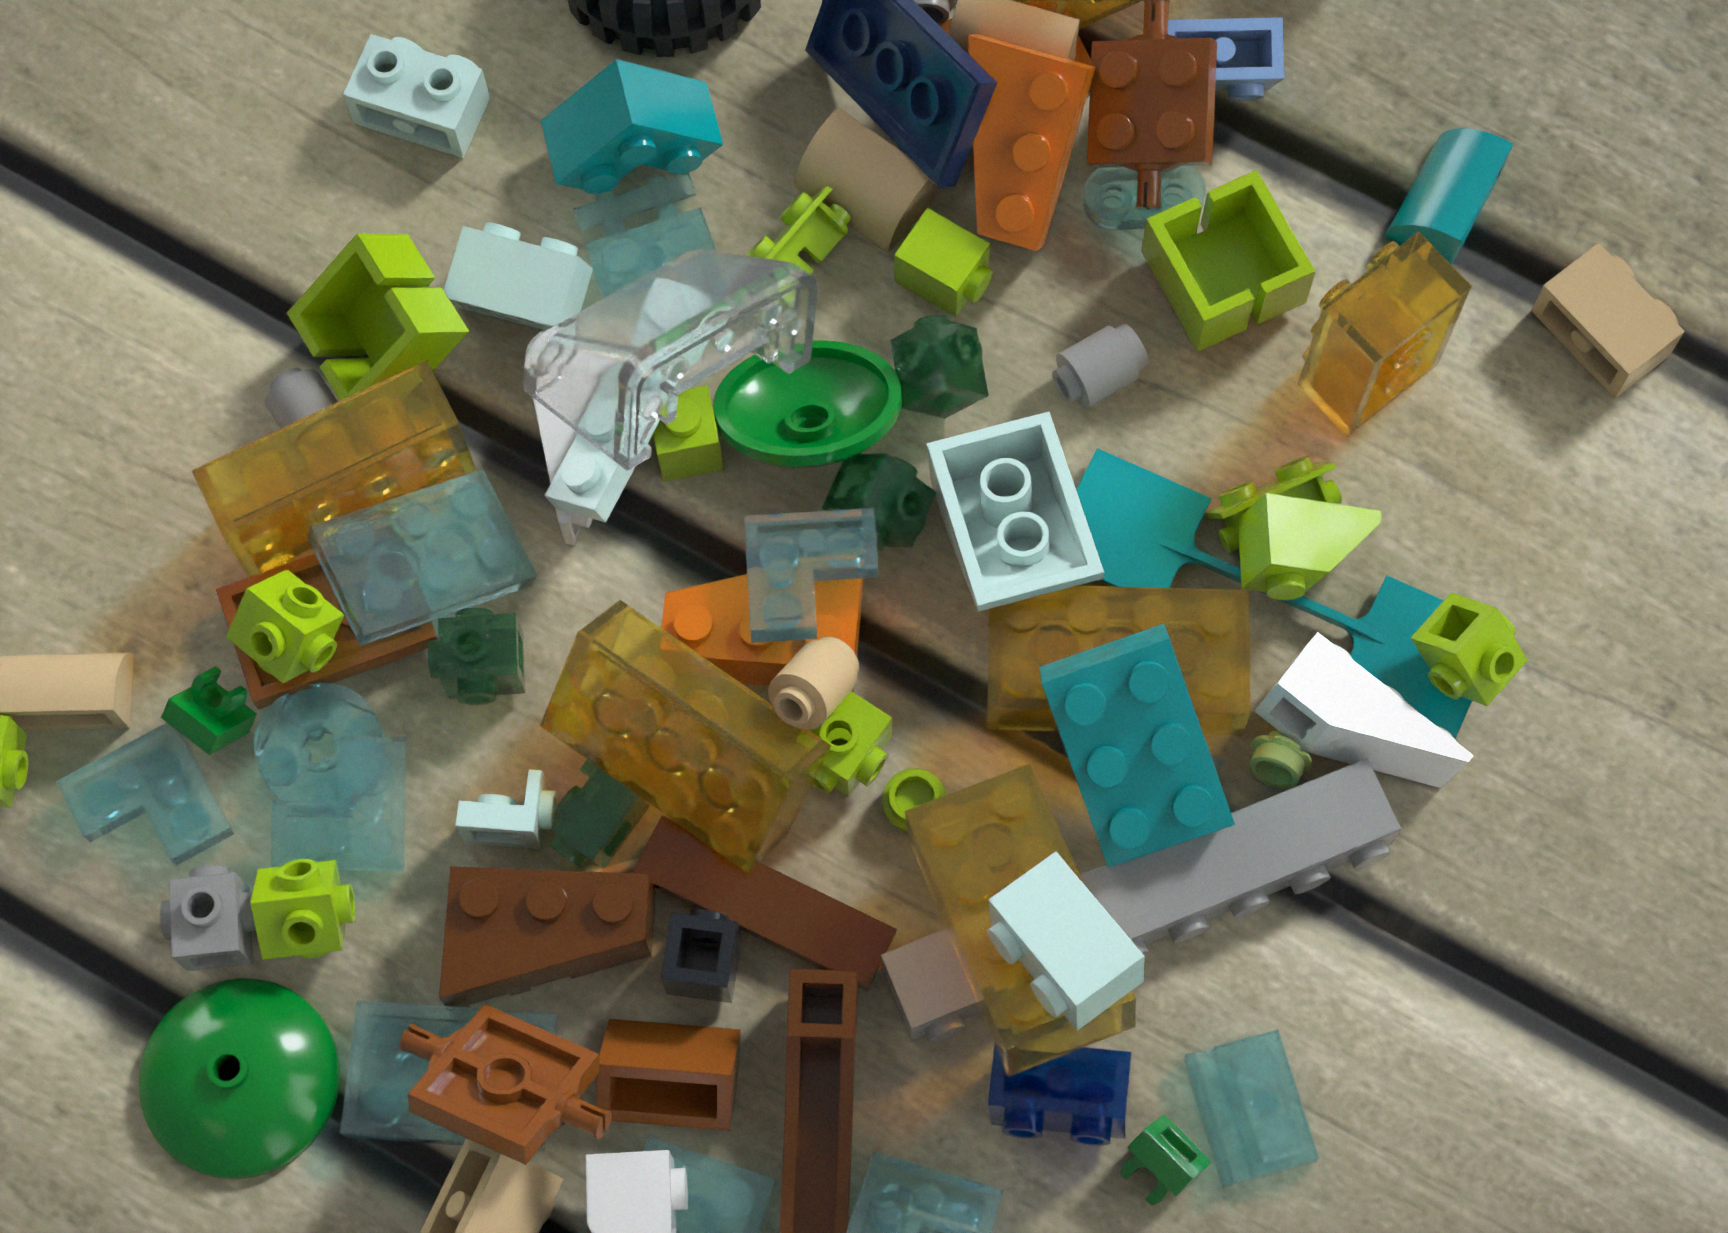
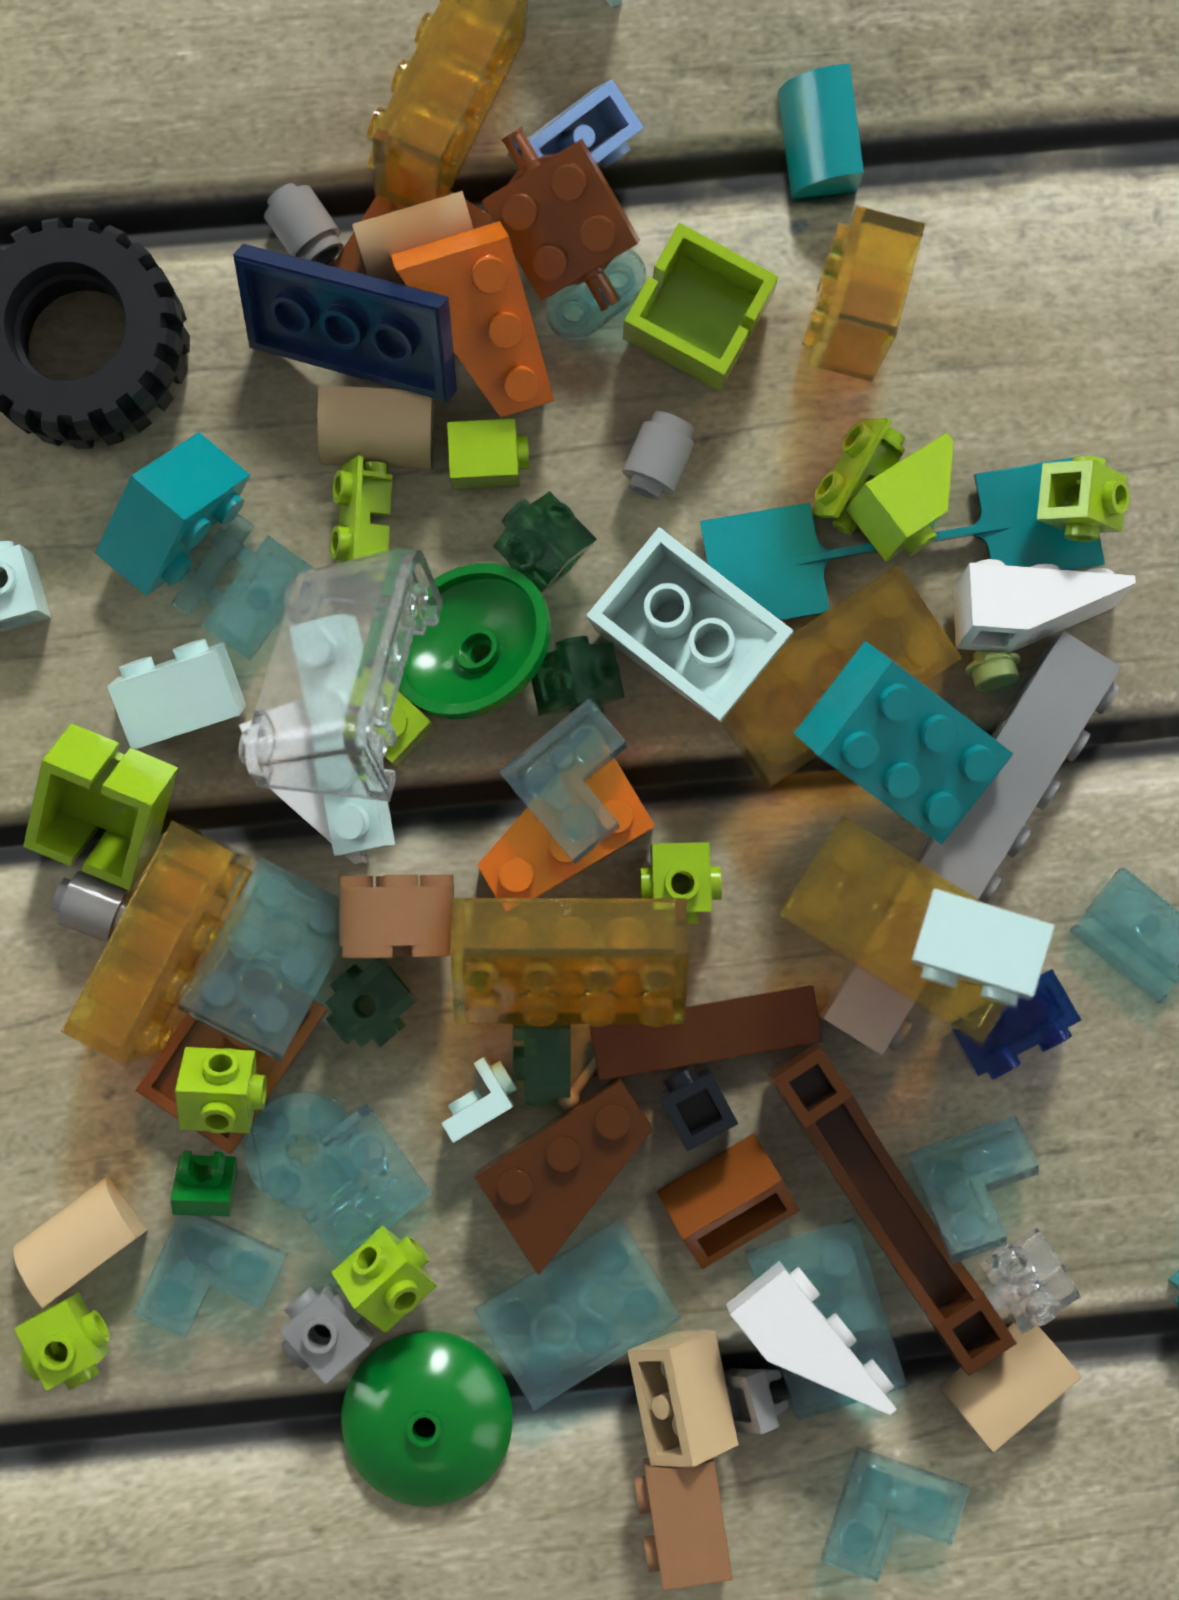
camera: 45 degrees left, 15 degrees up
(504, 1083) = (634, 1304): dark orange plate -> none
(555, 585) = (395, 916): none -> medium nougat brick
(814, 683) = (644, 863): tan brick -> none
(908, 791) = (757, 882): lime plate -> none
(1168, 1156) = (1113, 1013): green tile -> none
(1608, 319) = (1006, 158): tan brick -> none

